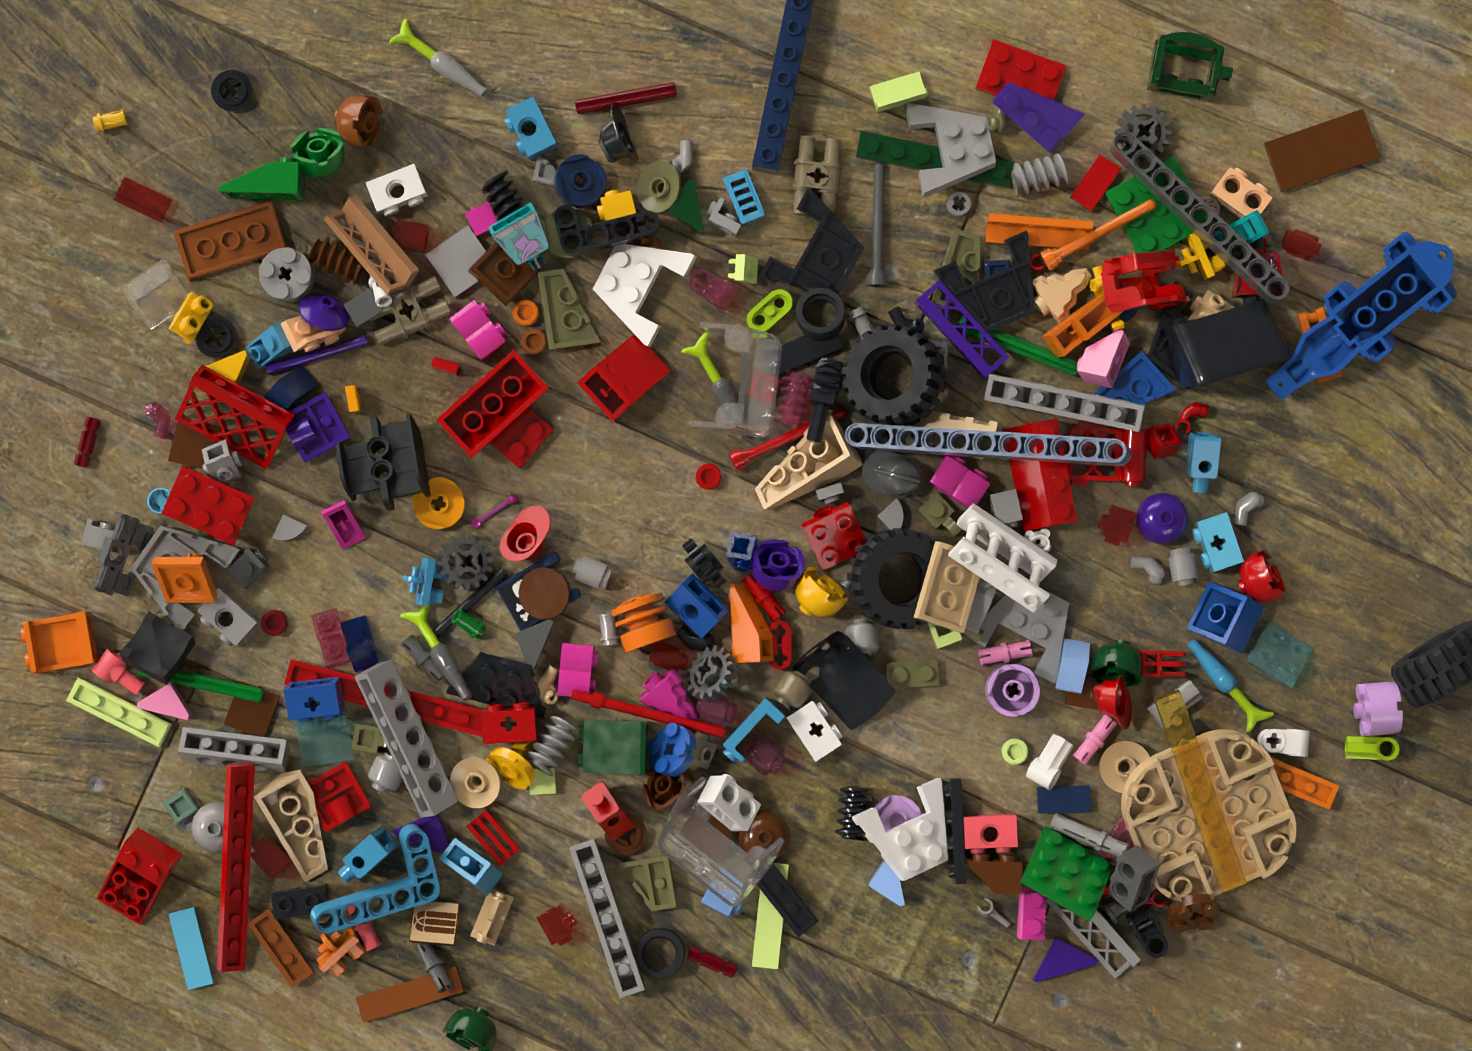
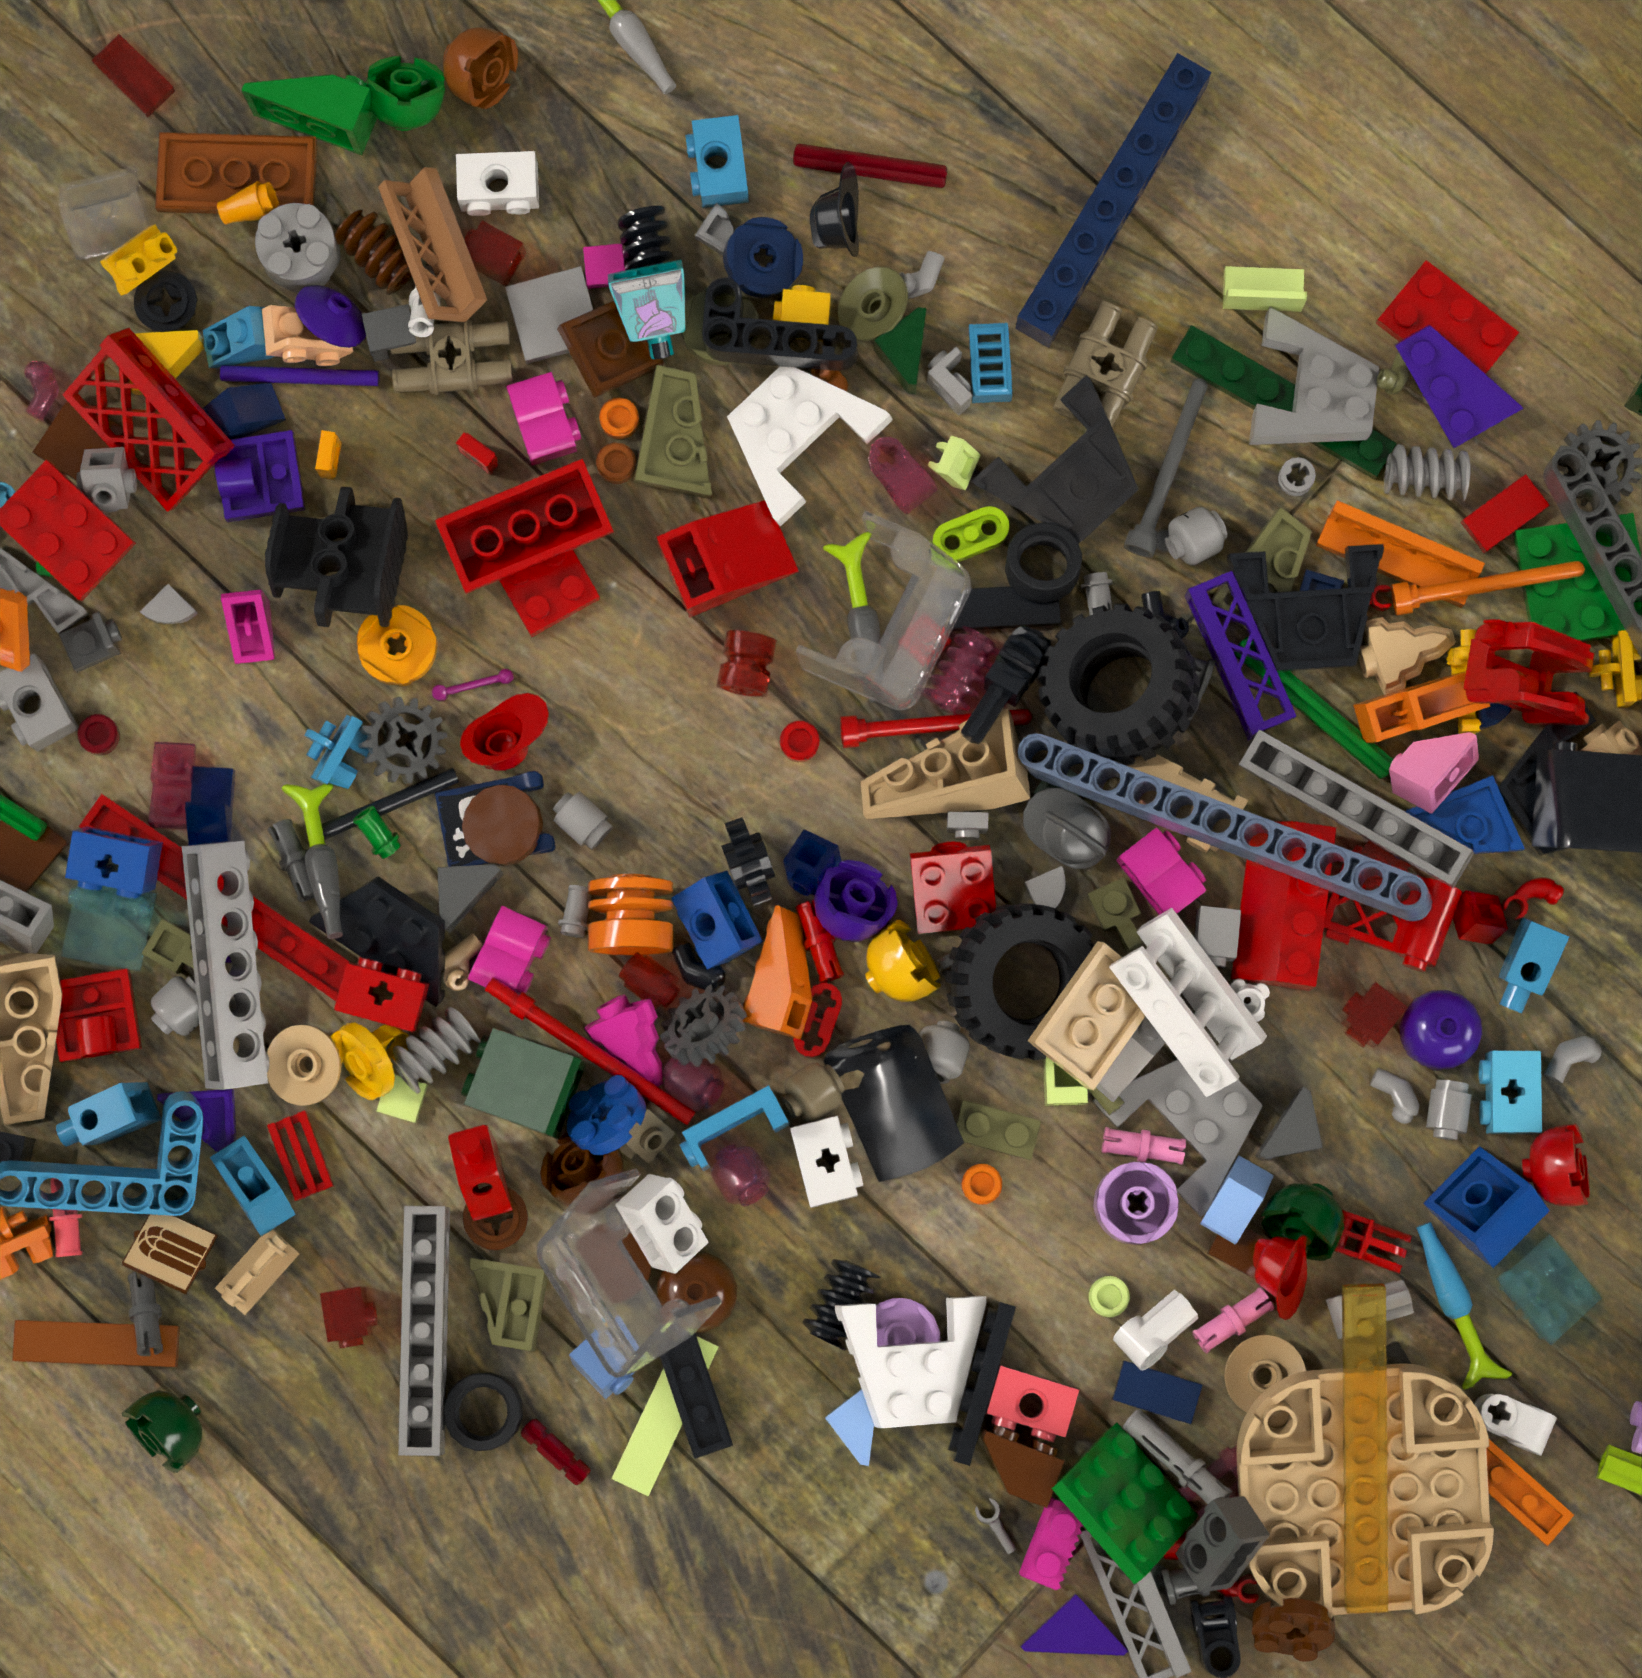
camera: 15 degrees right, 5 degrees down
(248, 258) = (248, 203): none -> light orange cone
(659, 440) = (746, 663): none -> clear red wheel
(909, 264) = (1196, 535): none -> light grey head
(914, 710) = (981, 1184): none -> orange tile
(1093, 611) = (1295, 1129): none -> dark grey slope

